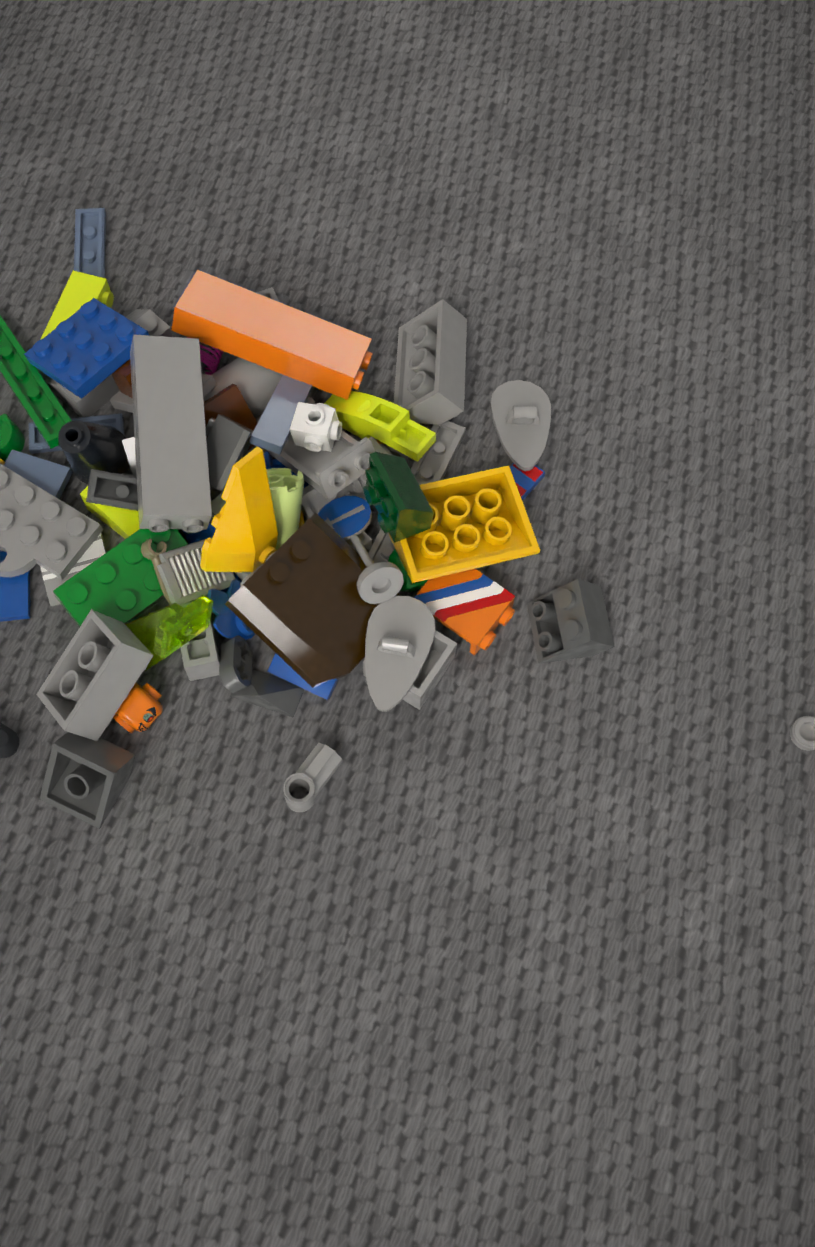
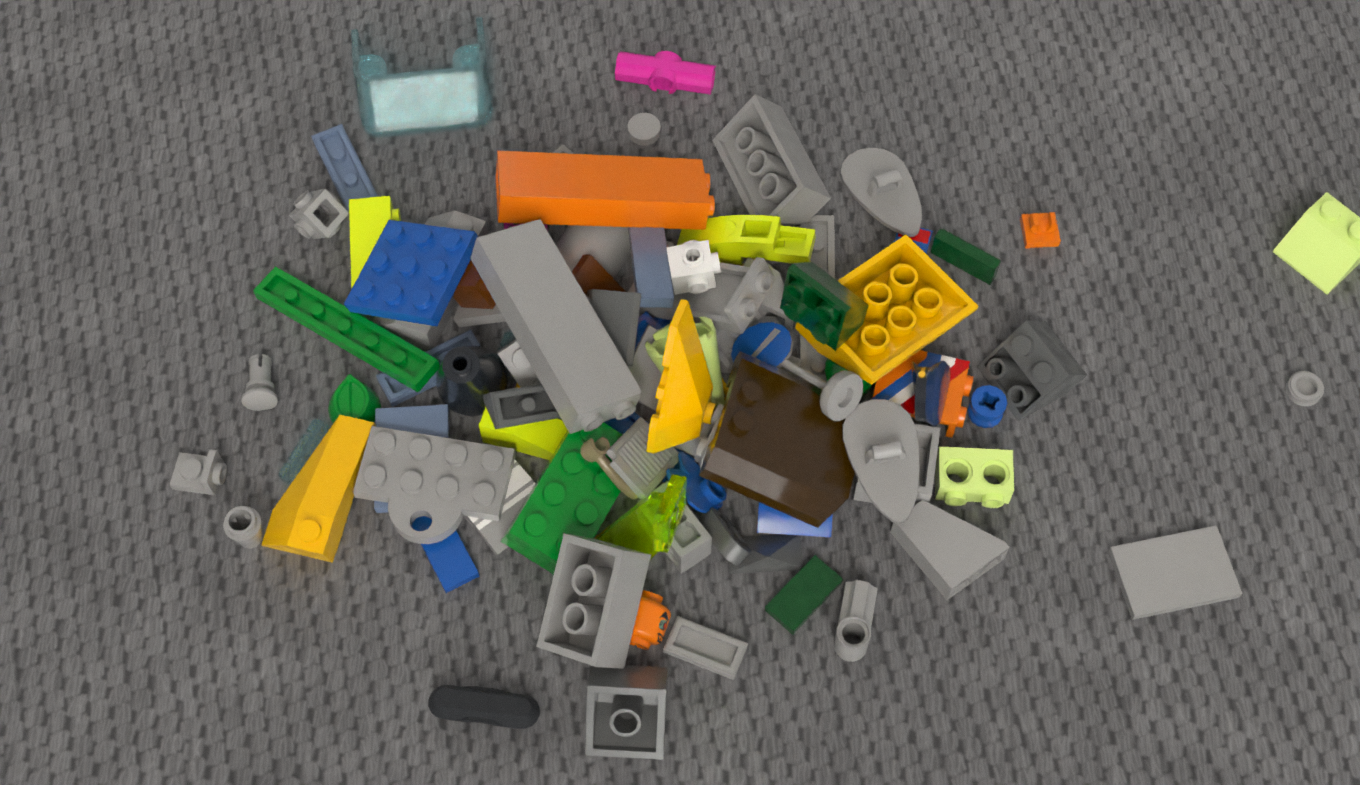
camera: 20 degrees left, 5 degrees down
(56, 278) = (327, 210): none -> light grey brick
(178, 210) = (427, 98): none -> clear light blue windscreen
(179, 750) = (705, 647): none -> light grey tile
(281, 738) = (803, 594): none -> dark green tile
(346, 298) = (644, 129): none -> light grey tile
(385, 256) = (665, 72): none -> dark pink piece
(419, 748) = (947, 547): none -> light grey slope
(460, 609) = (930, 391): none -> dark blue piece
(477, 687) = (972, 467): none -> yellowish green brick
(513, 648) = (983, 415): none -> blue wheel
(561, 504) = (965, 256): none -> dark green tile
(608, 848) = (1174, 572): none -> light grey tile
(640, 506) = (1040, 230): none -> orange tile

